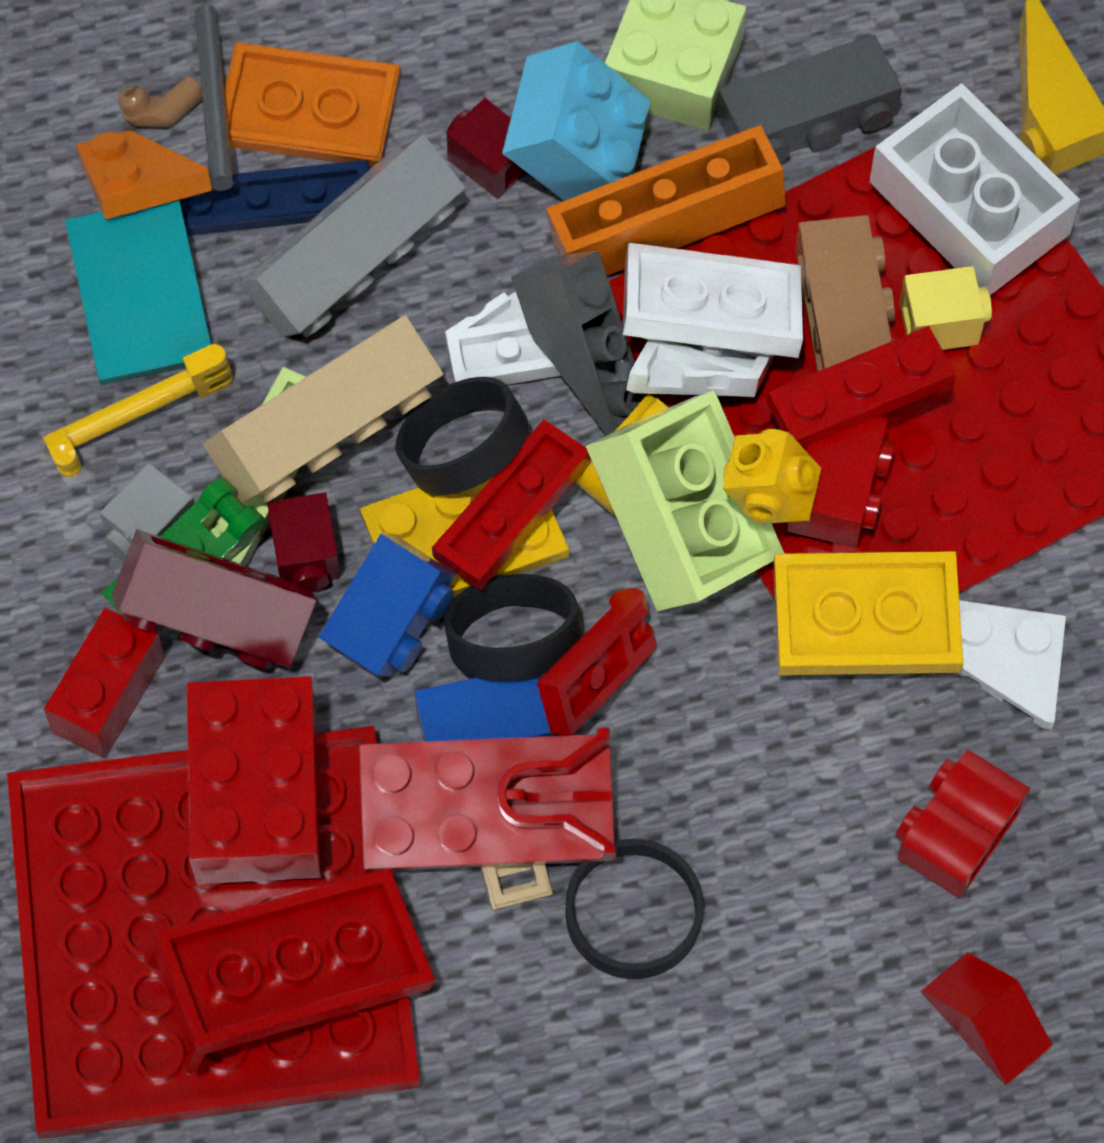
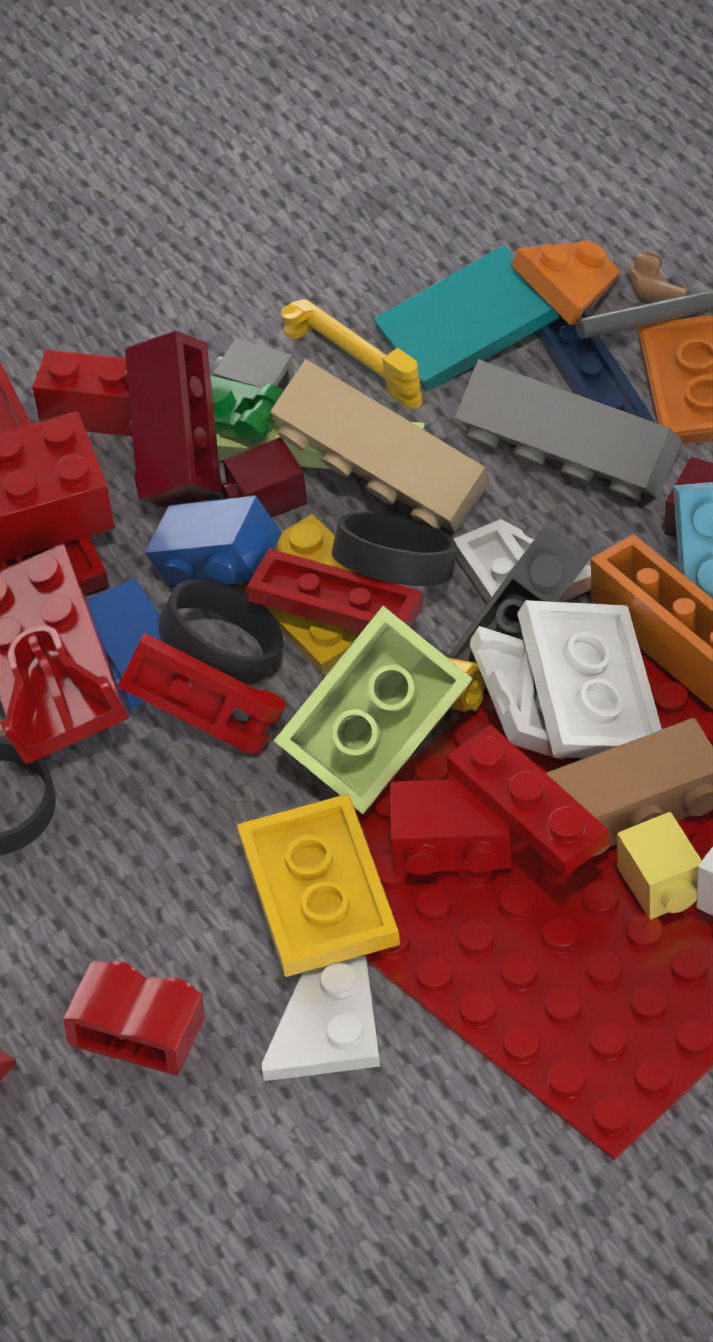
camera: 80 degrees right, 15 degrees down
(771, 477) = (399, 744): yellow brick -> none

